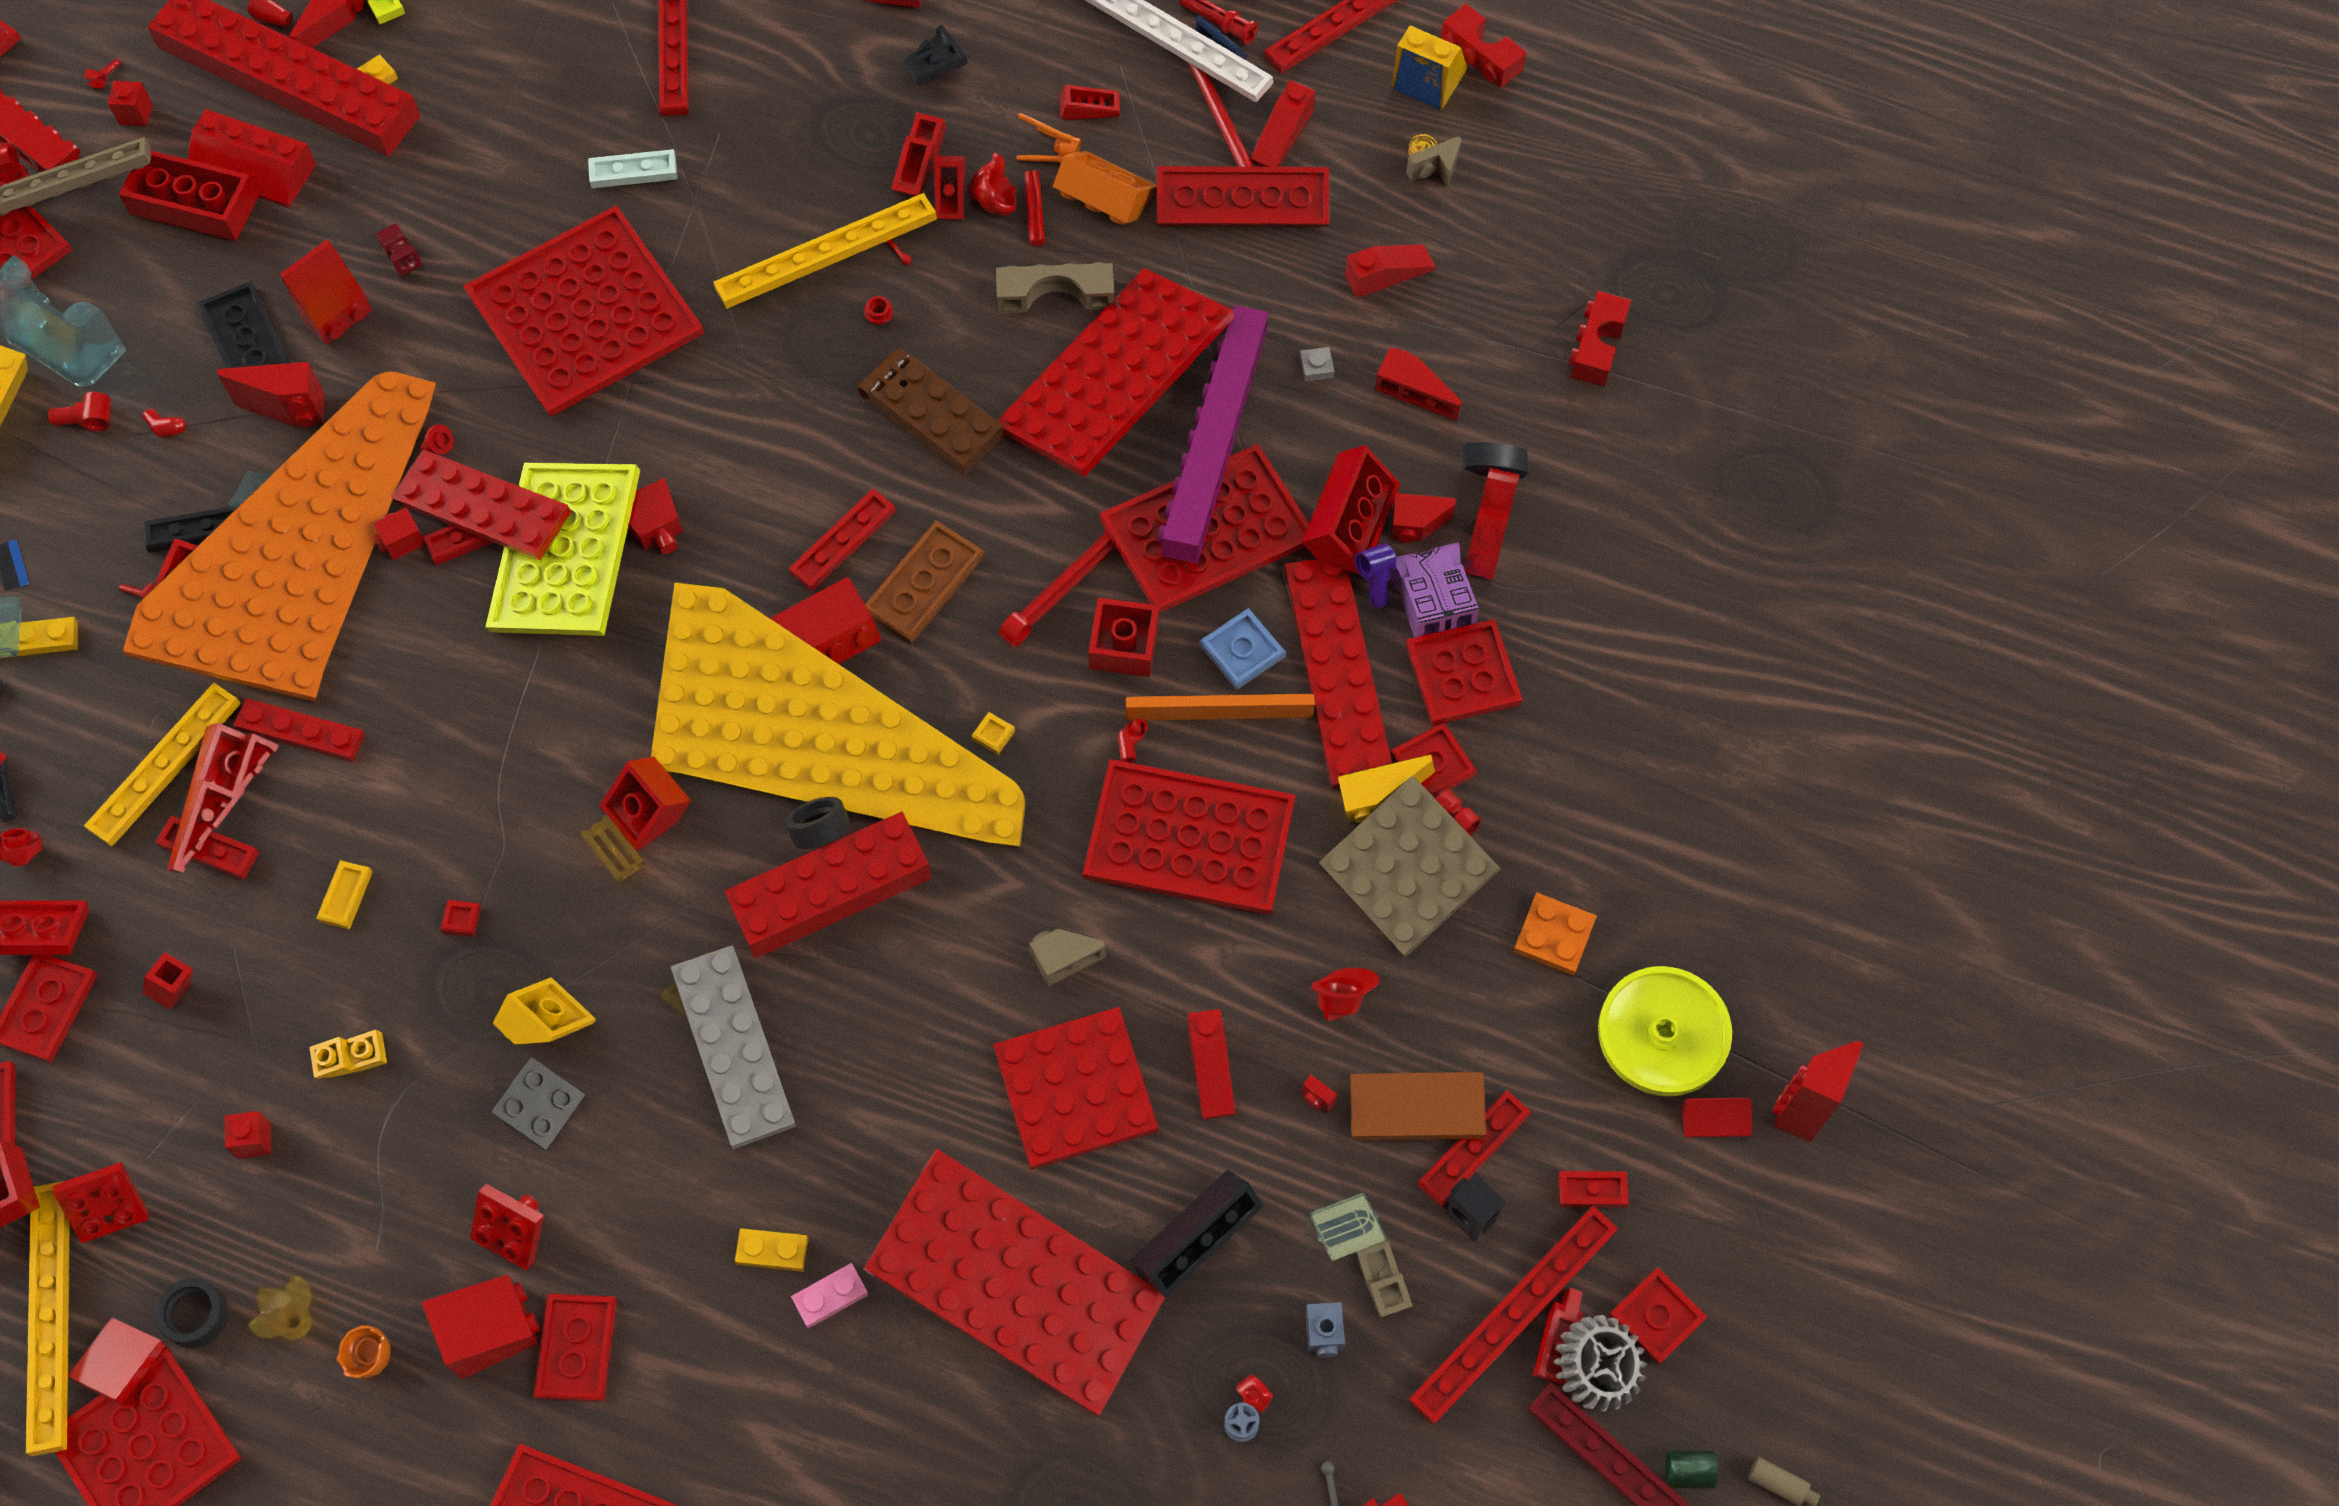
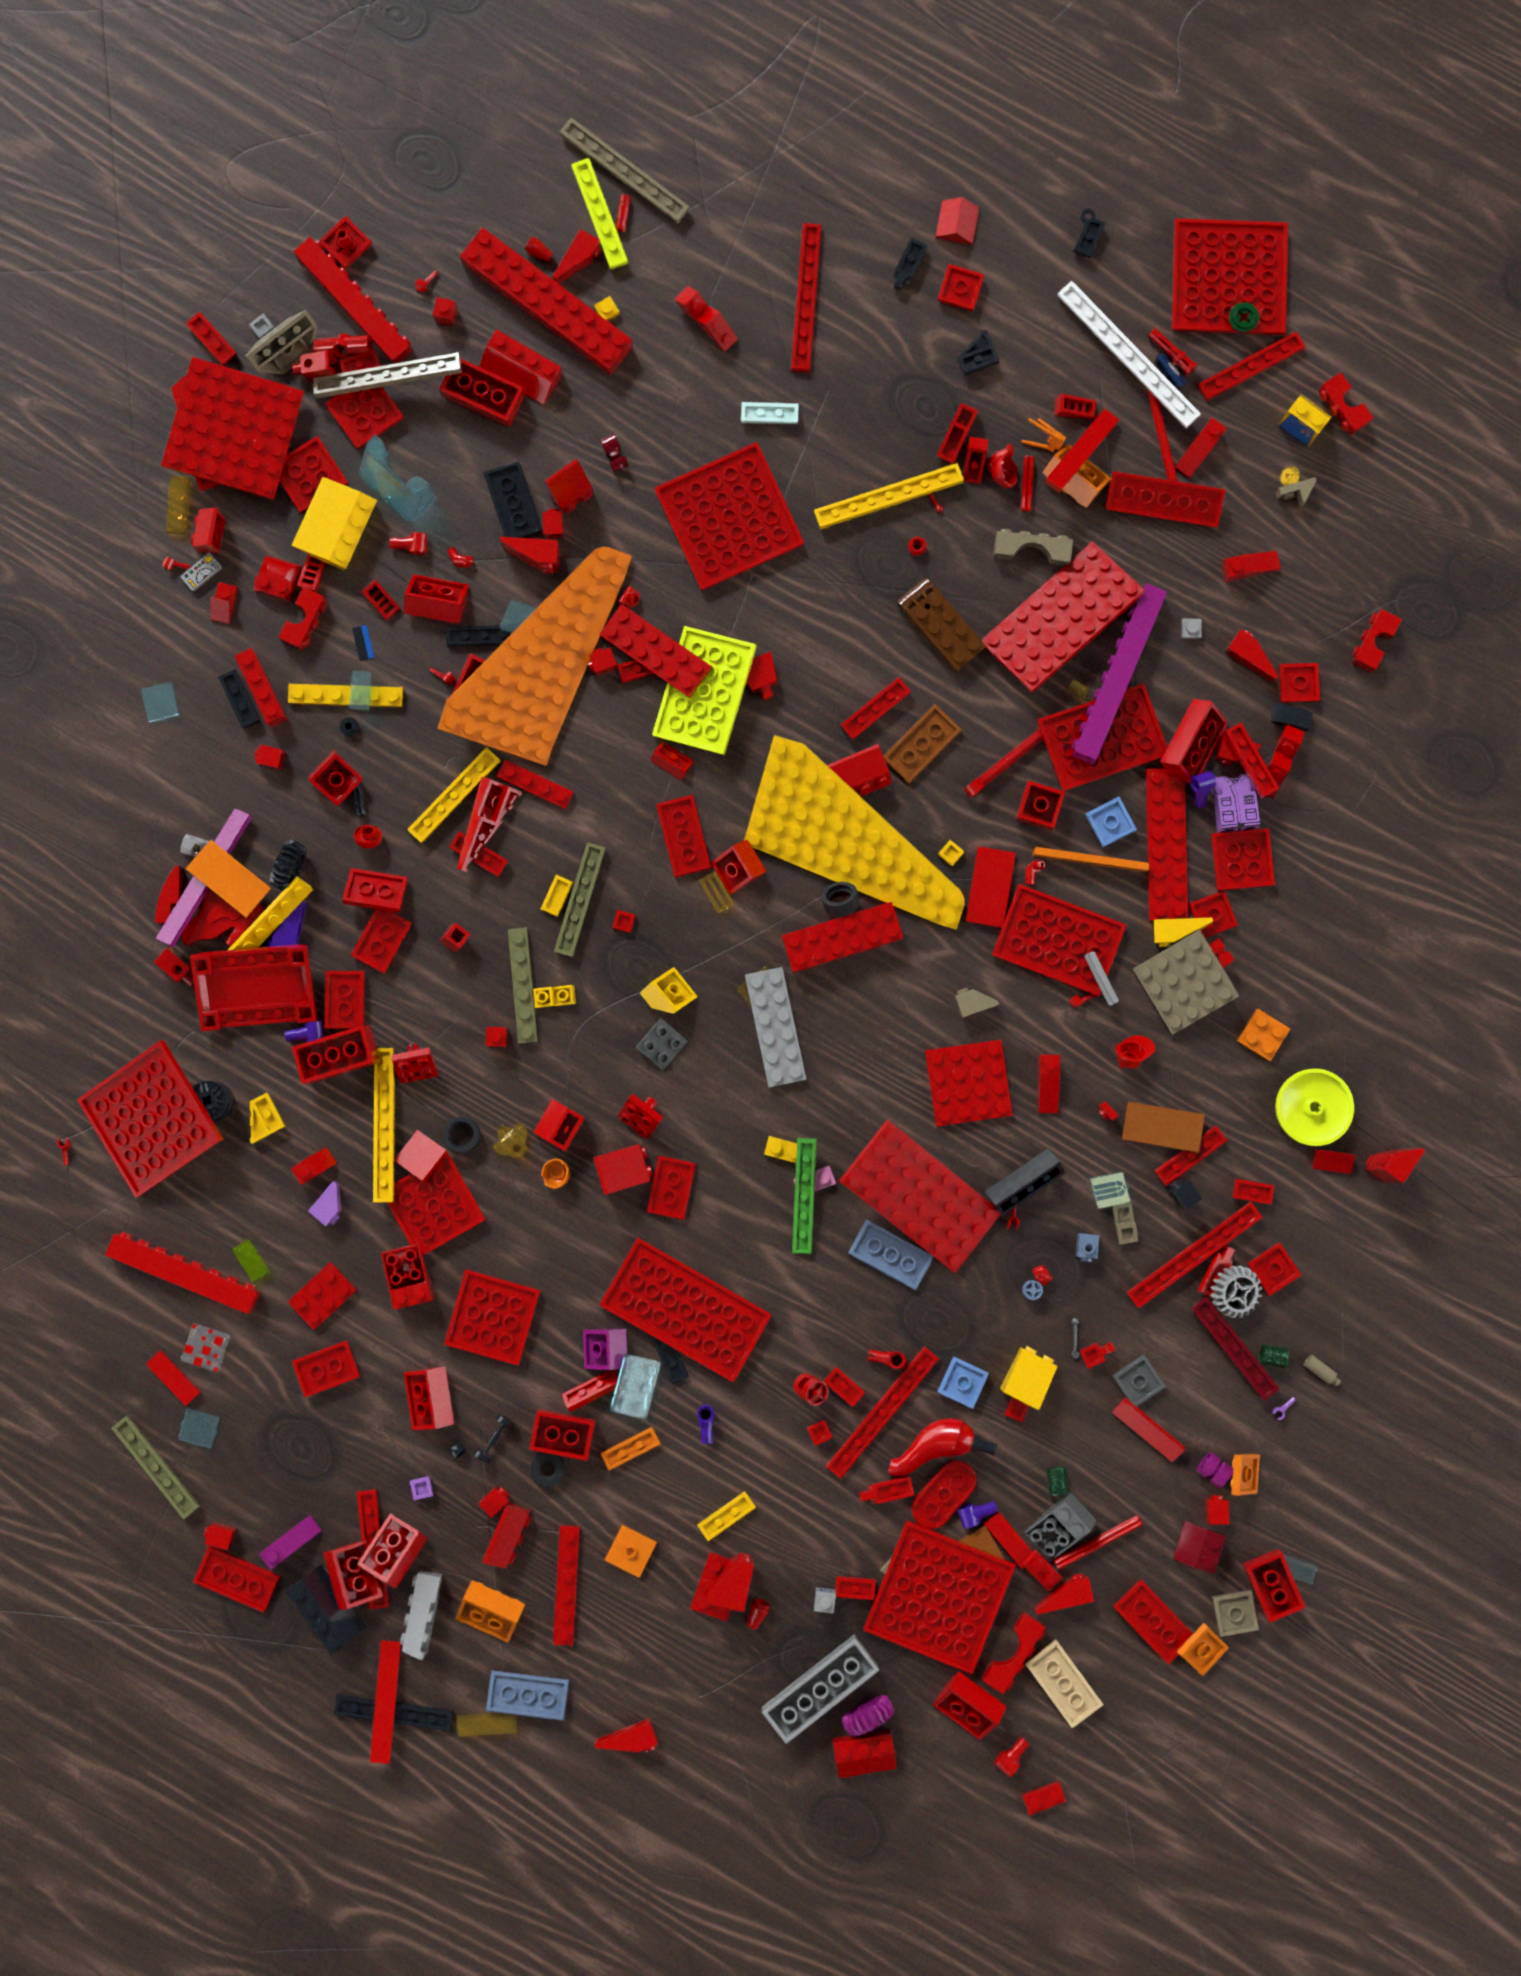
camera: 10 degrees right, 20 degrees up
(24, 479) = (369, 588): none -> red slope
(124, 484) = (435, 599): none -> red slope
(292, 1047) = (522, 985): none -> olive plate
(310, 348) = (553, 524): none -> red brick
(368, 1267) = (559, 1125): none -> red slope
(382, 894) = (579, 899): none -> olive plate
(521, 663) = (671, 760): none -> red slope
(528, 60) = (707, 317): none -> red arch
(551, 772) = (683, 836): none -> red tile
(812, 1320) = (804, 1195): none -> bright green tile
(981, 1403) = (891, 1254): none -> sand blue tile
(1064, 774) = (990, 887): none -> red tile
(1104, 146) = (1081, 450): none -> red tile
(1157, 466) = (1078, 688): none -> clear yellow tile
(1188, 1304) = (1013, 1219): none -> red hand
(1235, 928) = (1076, 1000): none -> red hand
(1269, 882) = (1101, 978): none -> light grey axle
(1444, 518) = (1251, 760): none -> red plate
(1497, 411) = (1299, 683): none -> red plate

